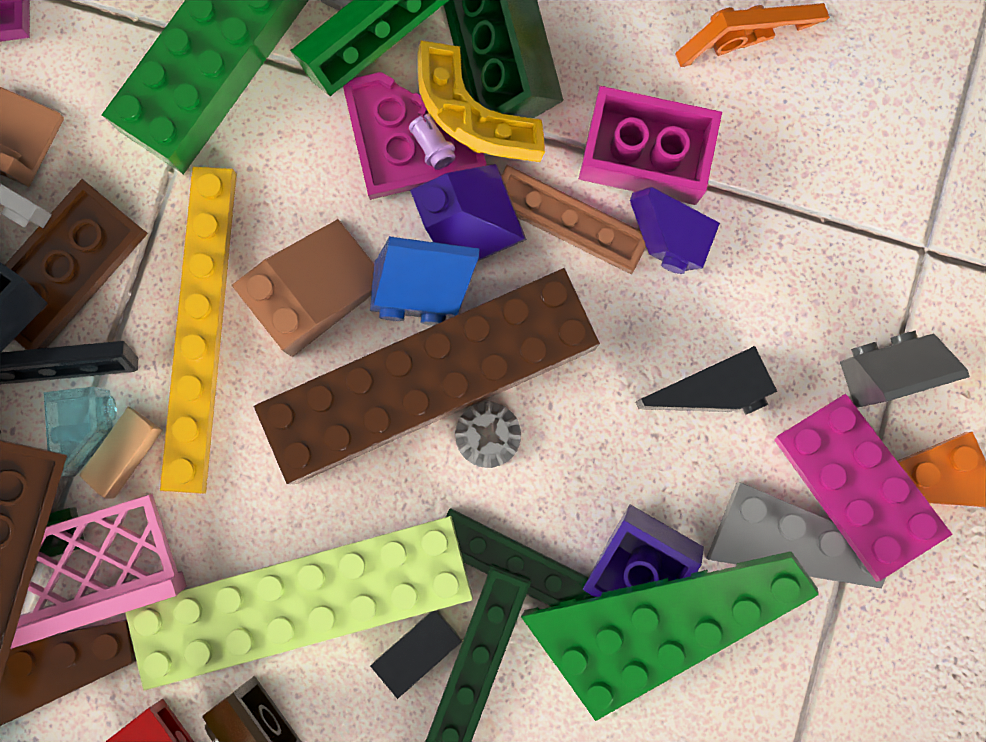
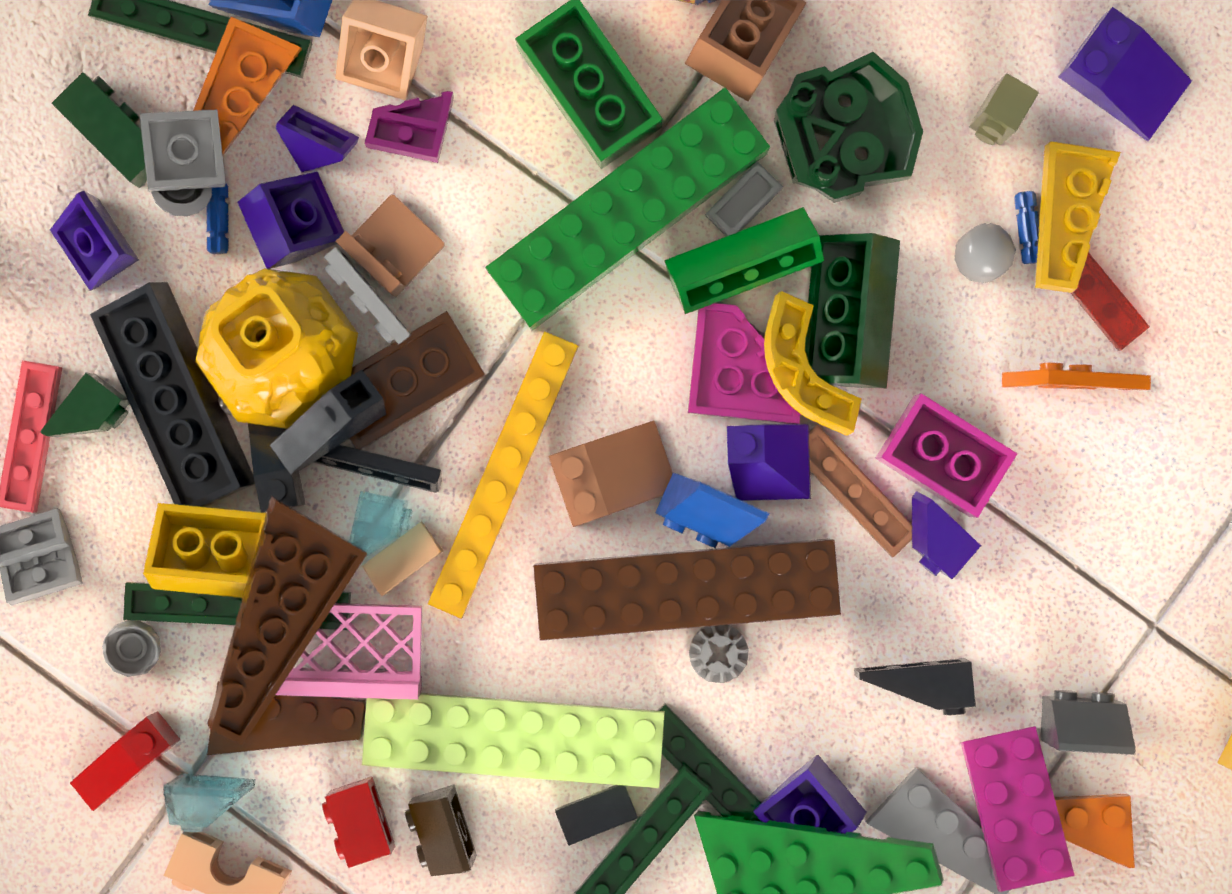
camera: 20 degrees right, 5 degrees up
(437, 150) = (760, 388): lavender pin -> none

